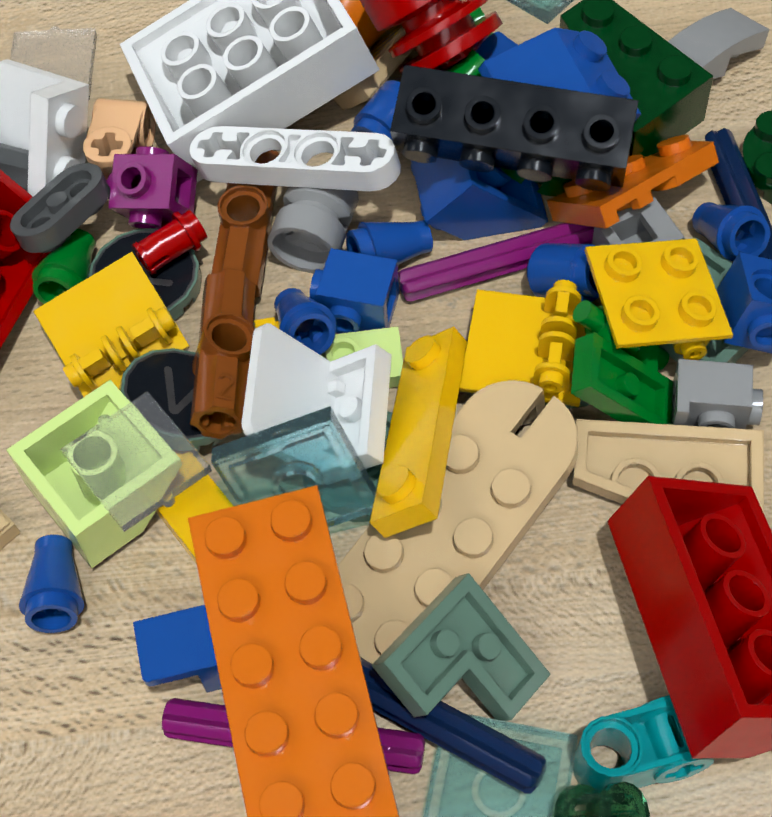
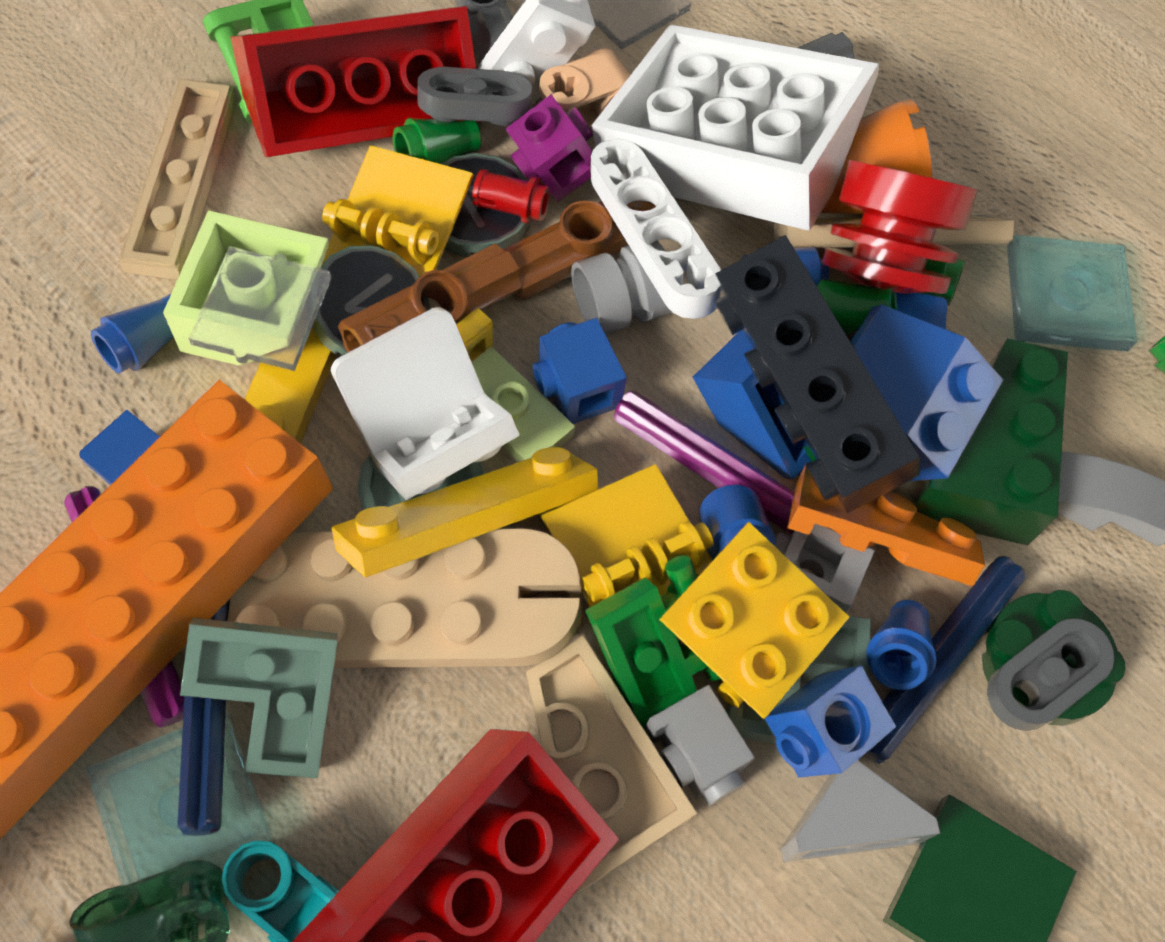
camera: 40 degrees right, 5 degrees up
(295, 457) = (343, 431): clear light blue tile -> none
(305, 319) = (507, 347): blue cone -> none
(391, 239) = (653, 363): blue cone -> none

